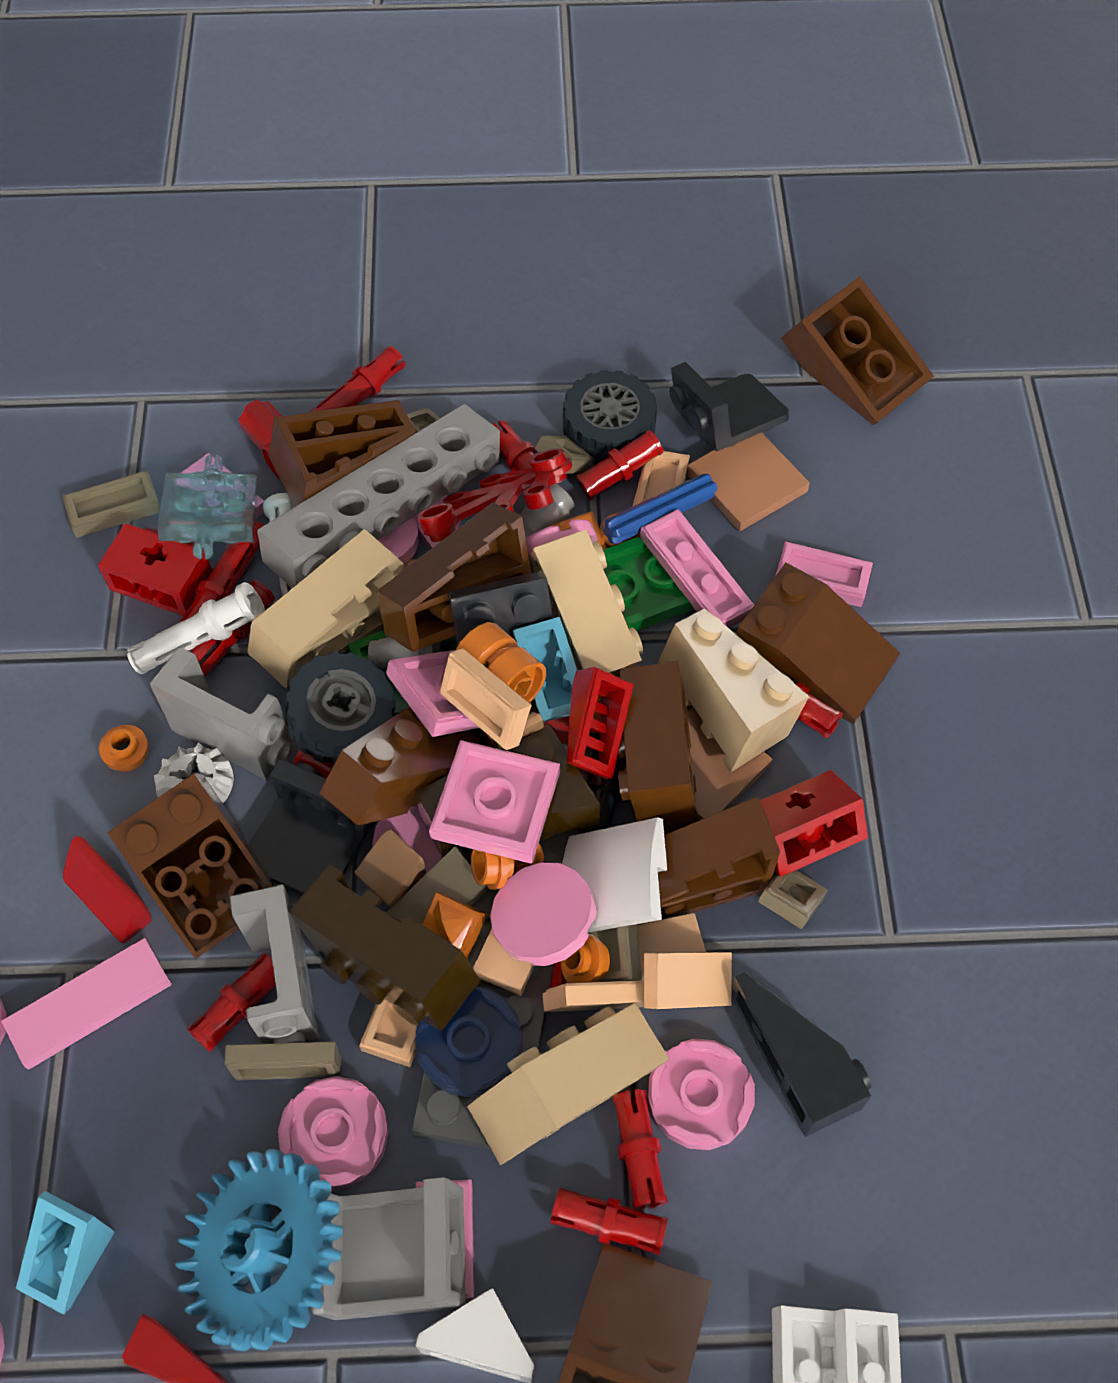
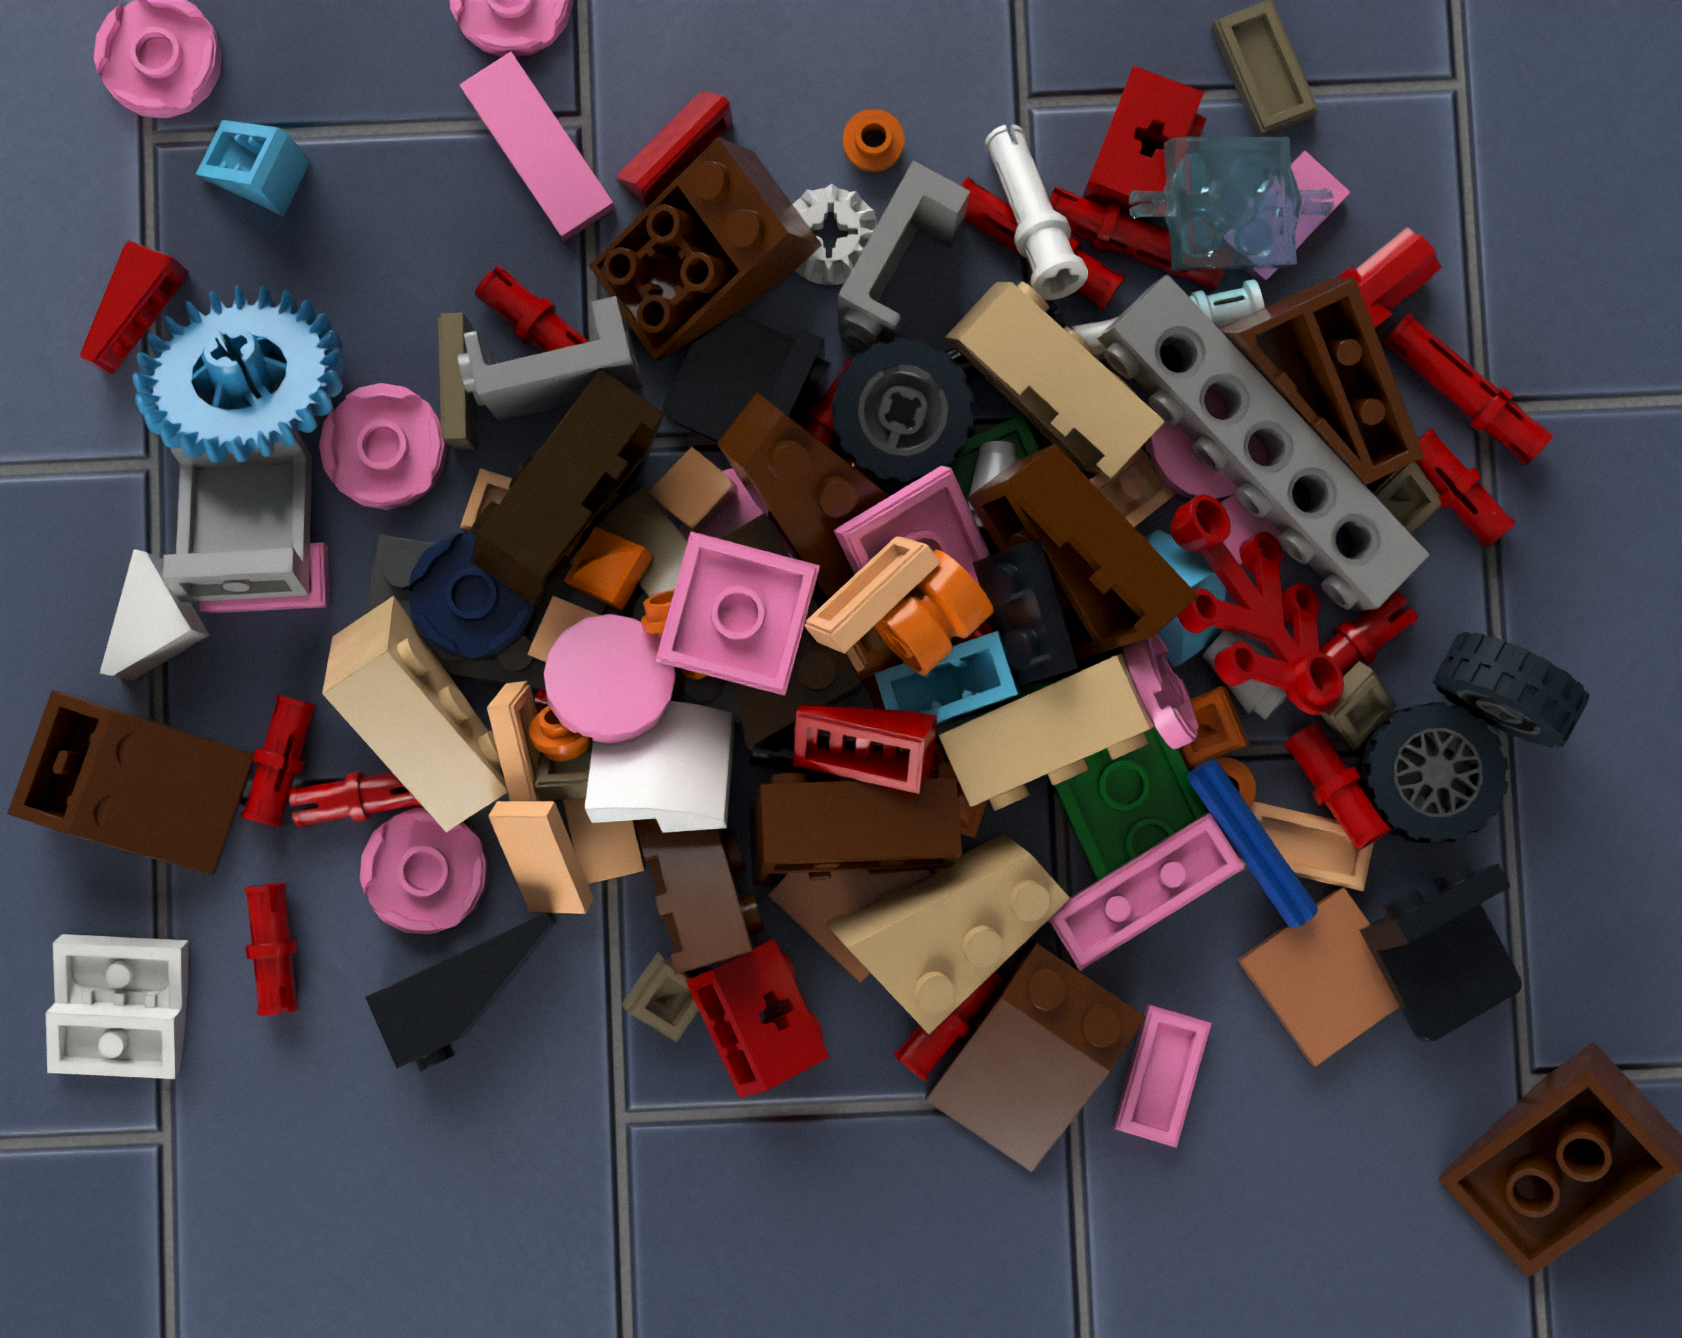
camera: 90 degrees right, 25 degrees up
(439, 387) = (1485, 521): none -> red pin
(554, 360) = (1511, 689): none -> black wheel
(775, 1223) = (271, 948): none -> red pin

